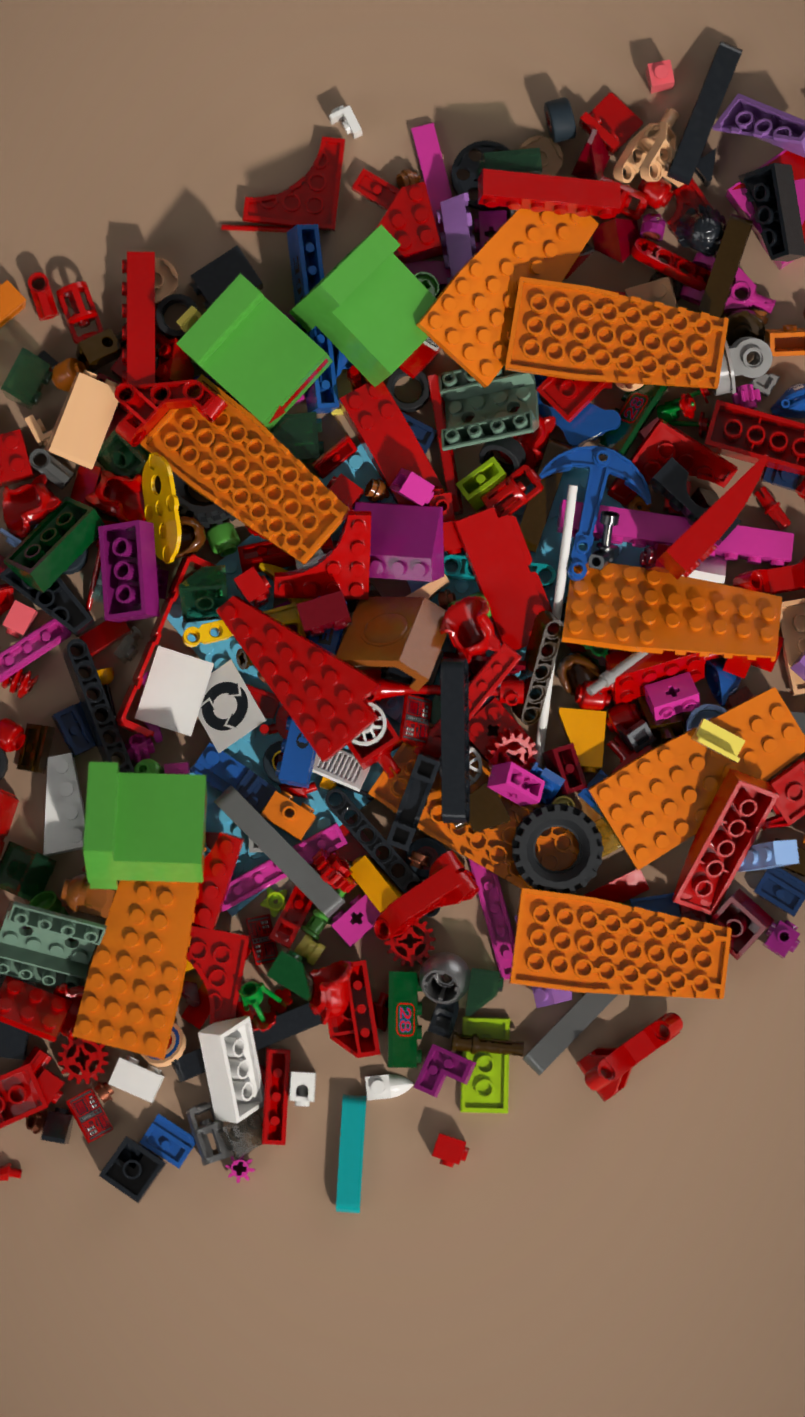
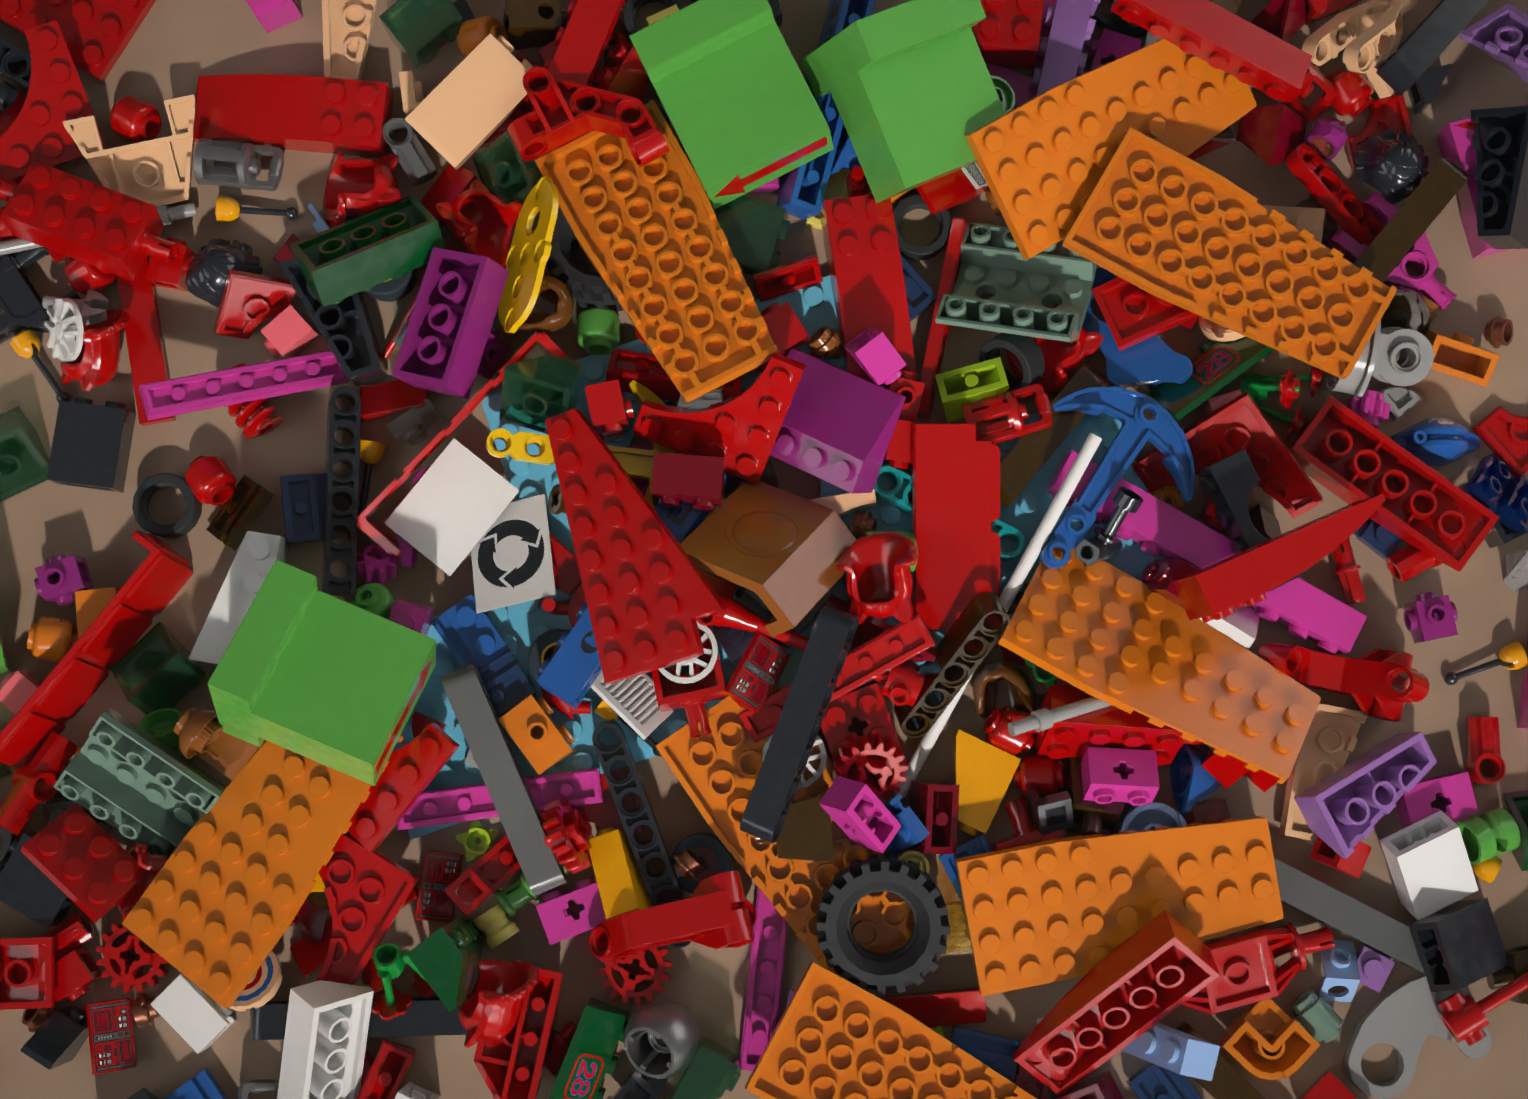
camera: 20 degrees right, 0 degrees up
(413, 801) = (710, 783): black arch -> none
(718, 740) = (1162, 863): light yellow panel -> none

